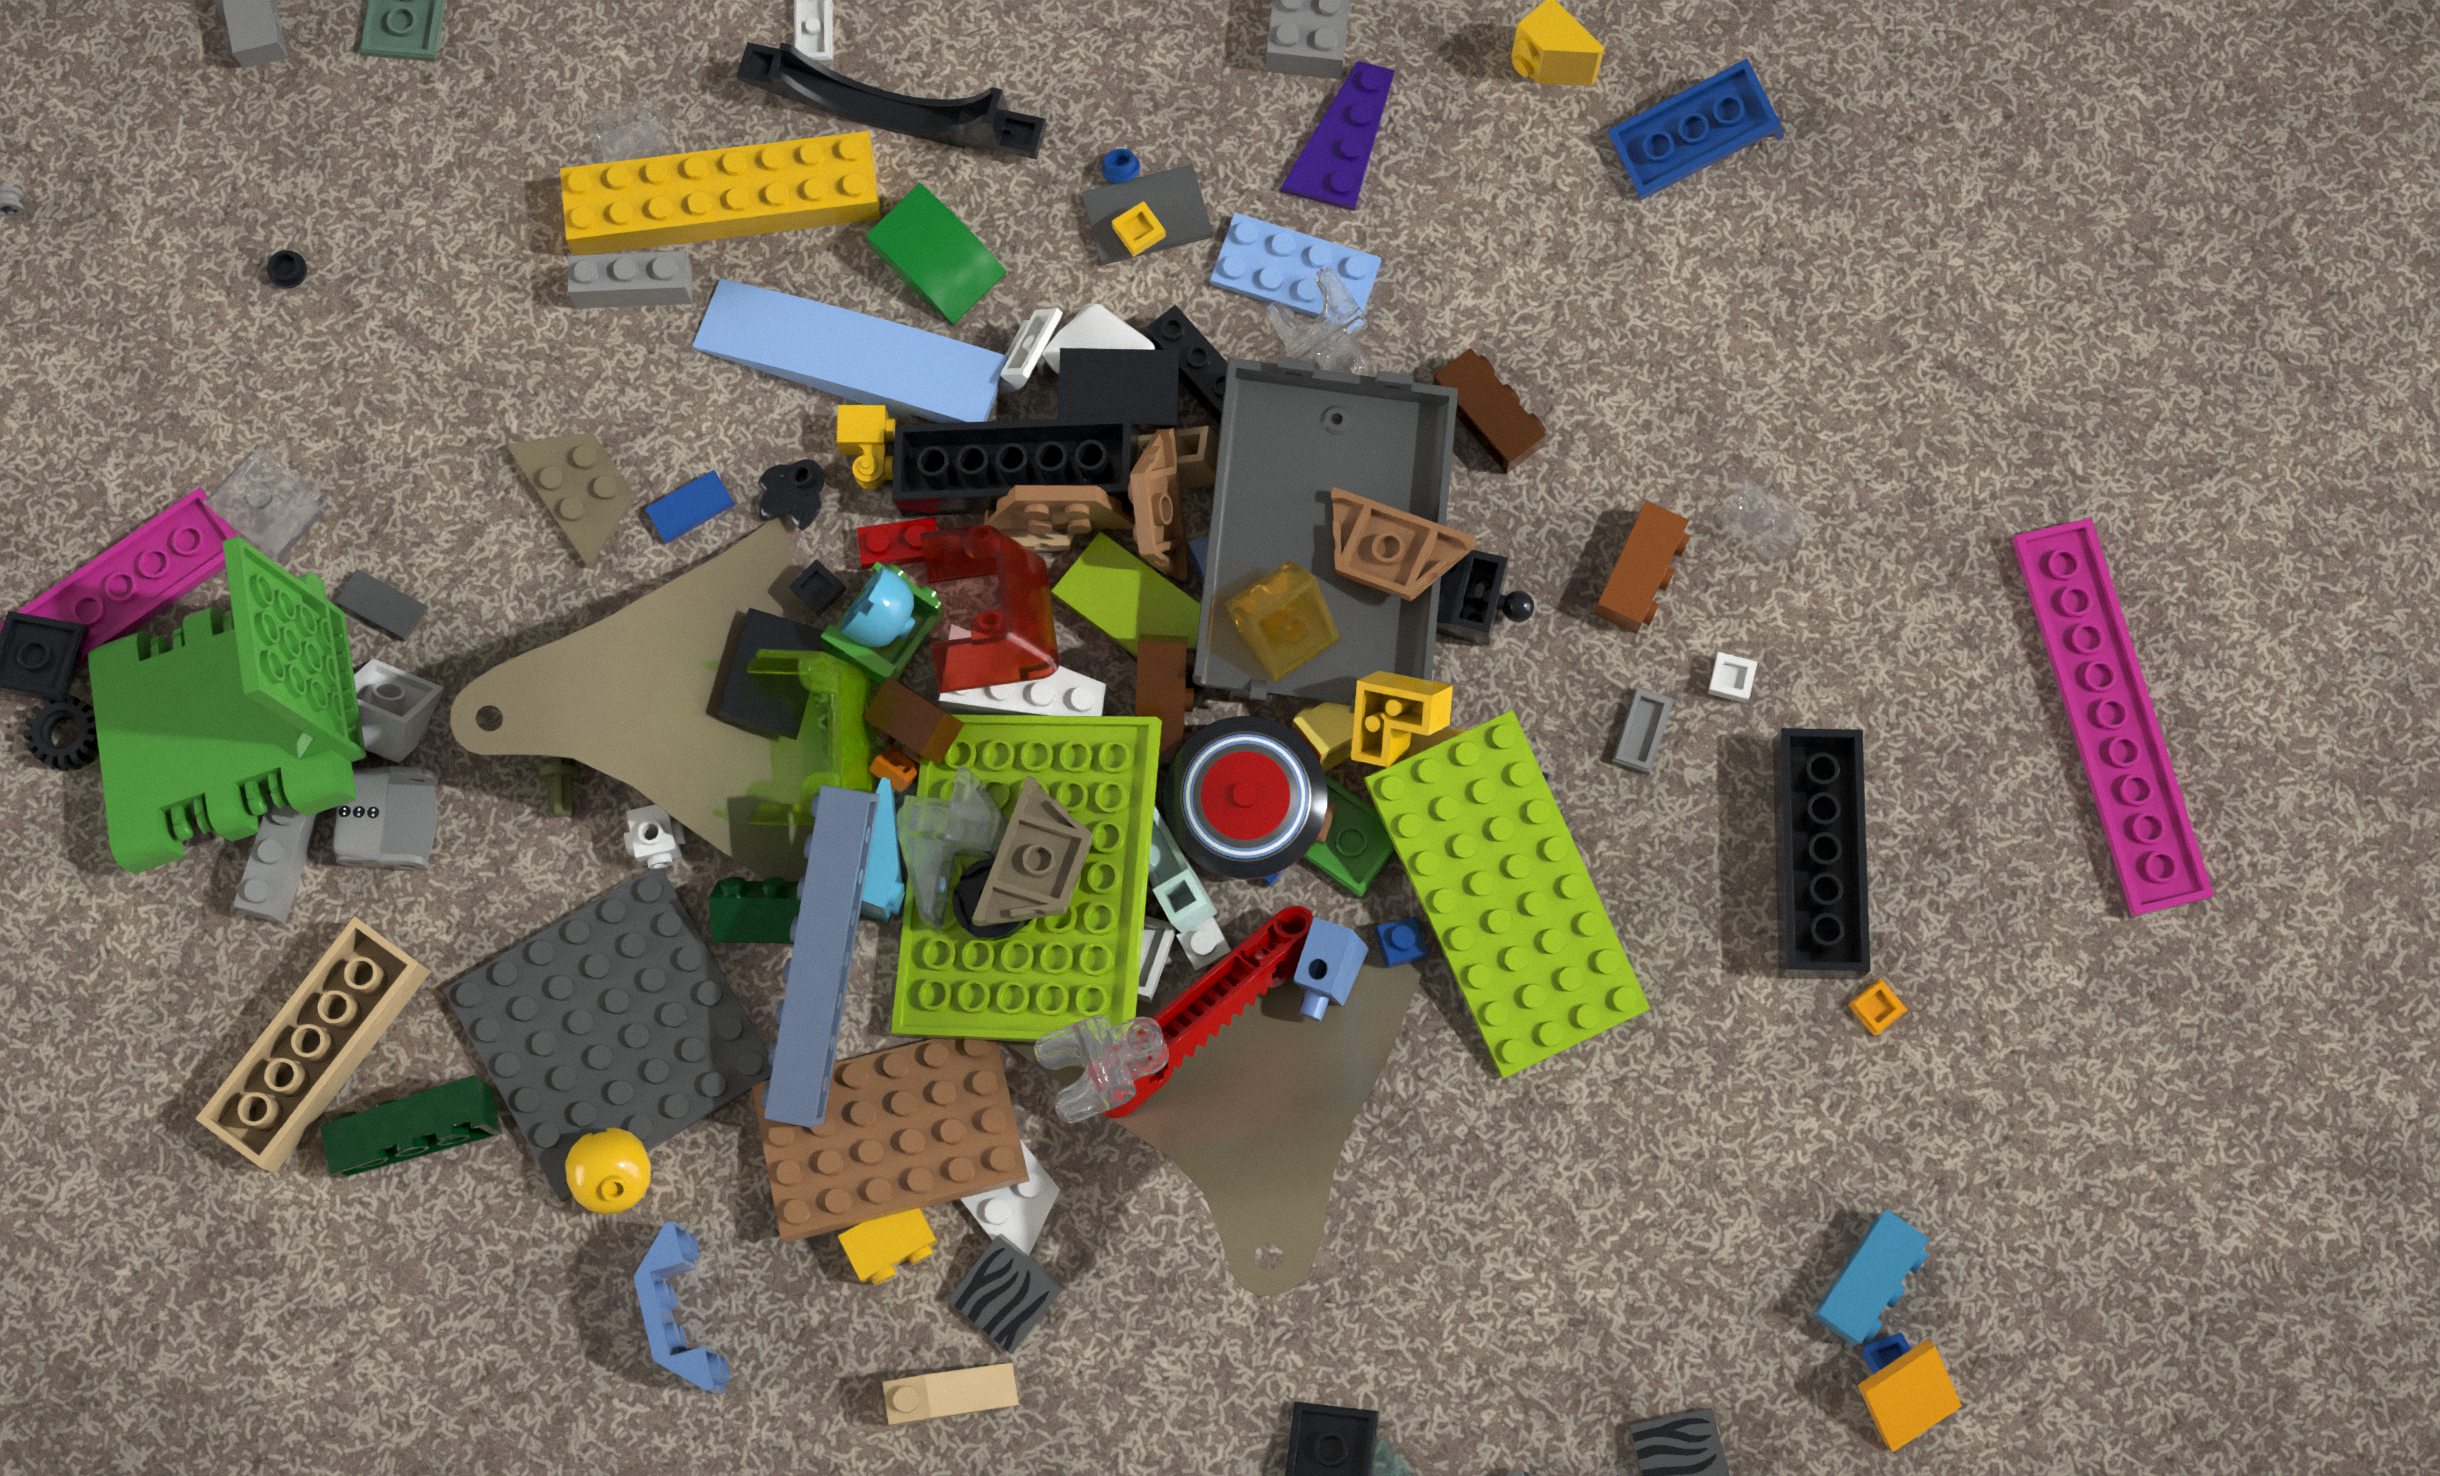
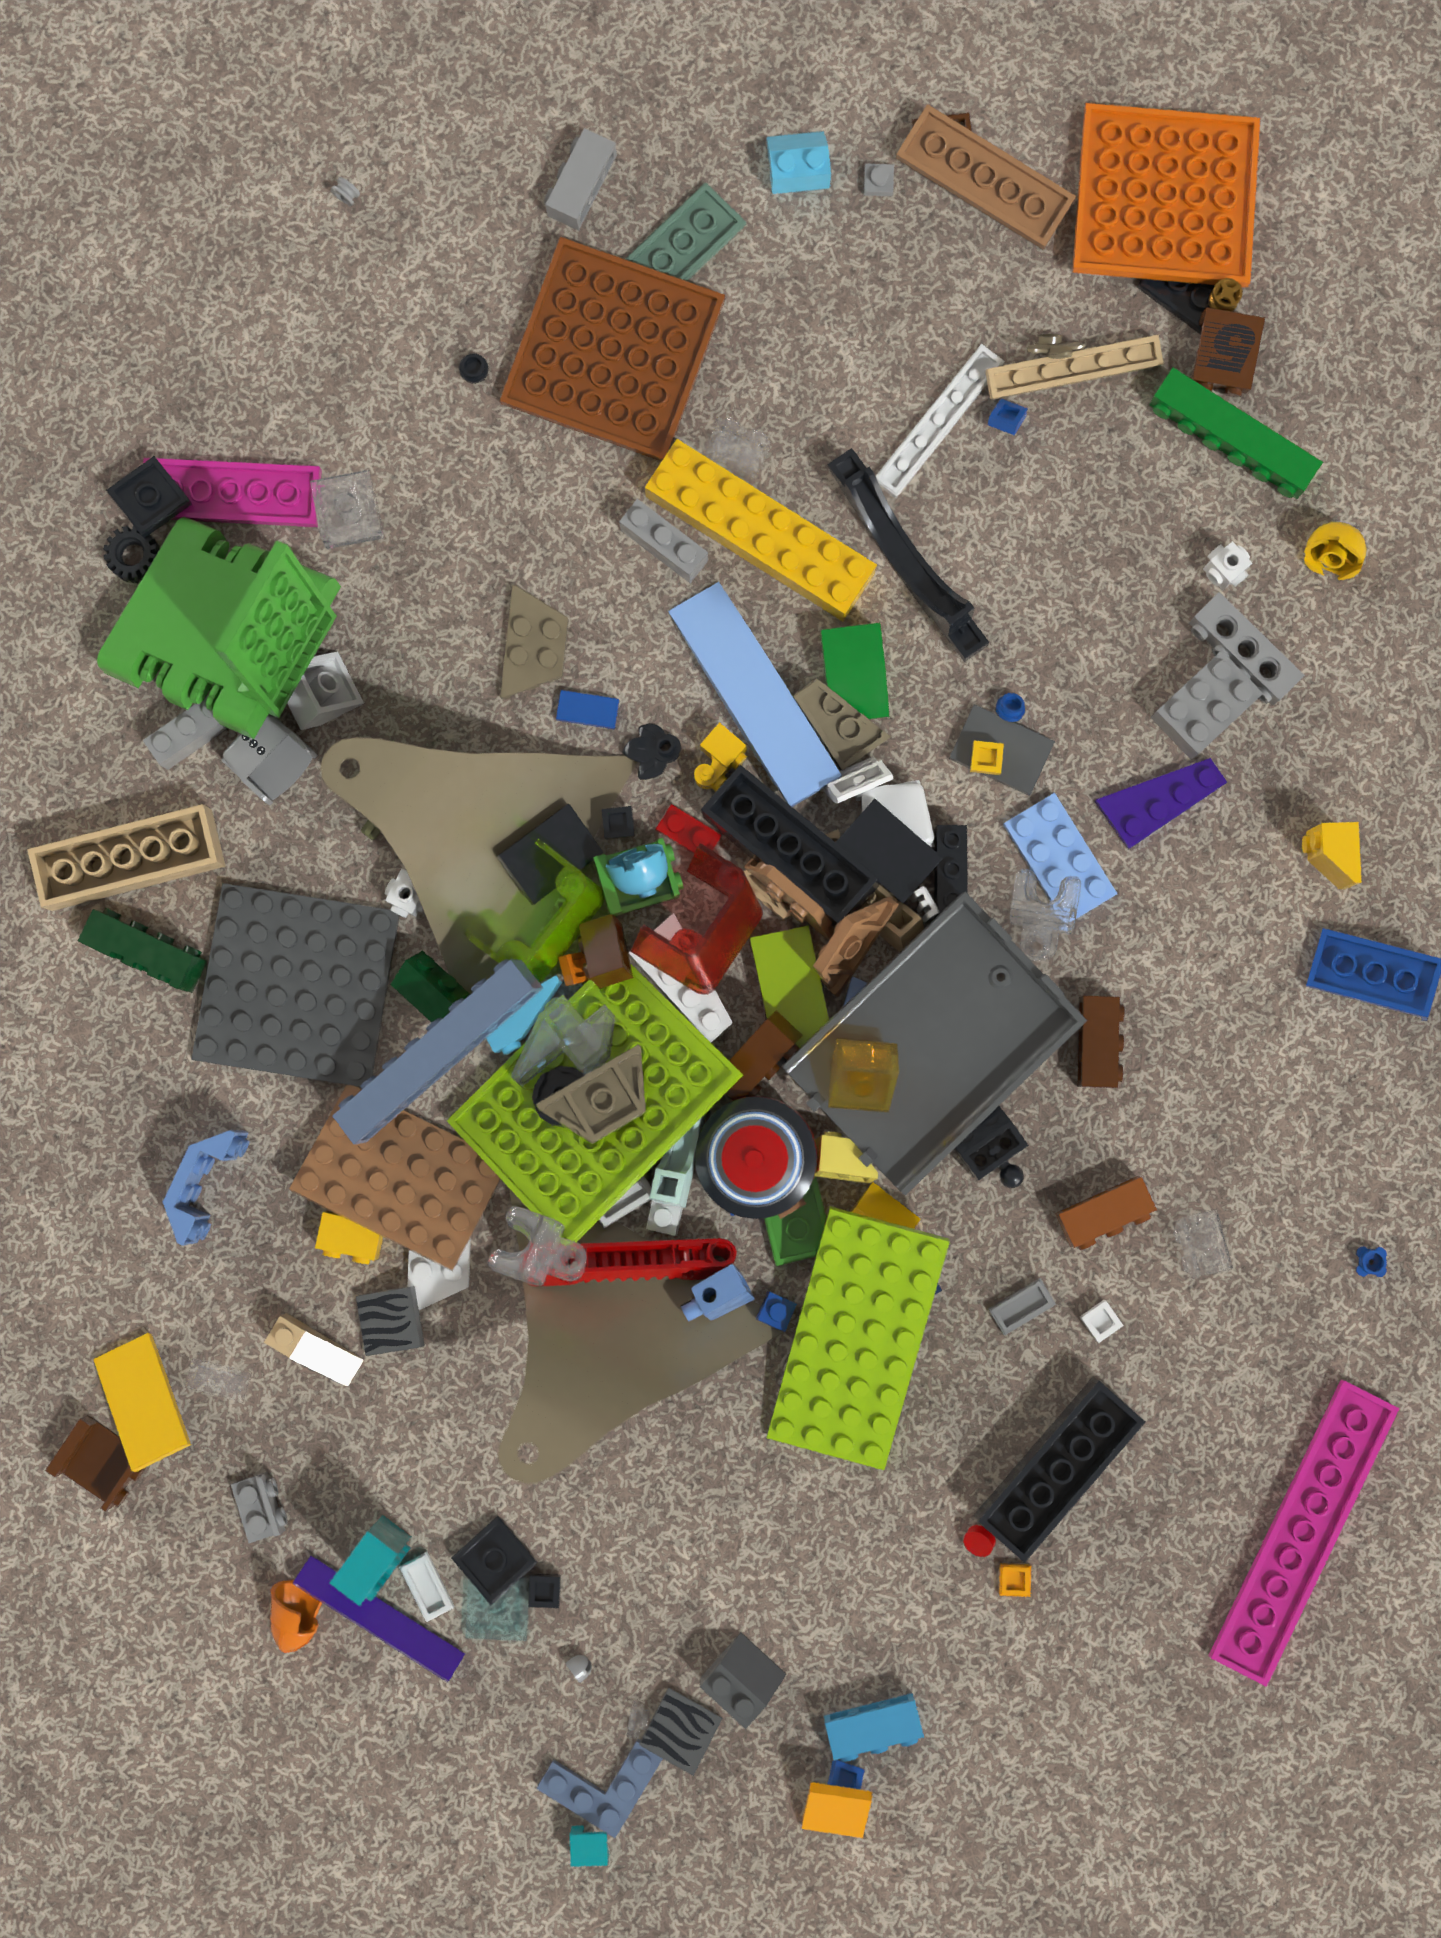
camera: 45 degrees right, 10 degrees up
(381, 605) = (366, 623): dark grey tile -> none
(419, 141) = (612, 349): none -> dark orange plate
(608, 1171) = (228, 1068): yellow cylinder -> none
(966, 314) = (838, 725): none -> dark tan wing
(1197, 419) = (923, 904): none -> white tile
(1390, 709) = (880, 1185): yellow brick -> none
(1392, 546) = (964, 1083): medium nougat wing -> none
(1412, 1437) = (544, 1590): none -> black plate
(1697, 1348) = (742, 1680): none -> dark grey slope
(1807, 996) = (979, 1541): none -> red tile
(1938, 393) = (1377, 1268): none -> blue plate

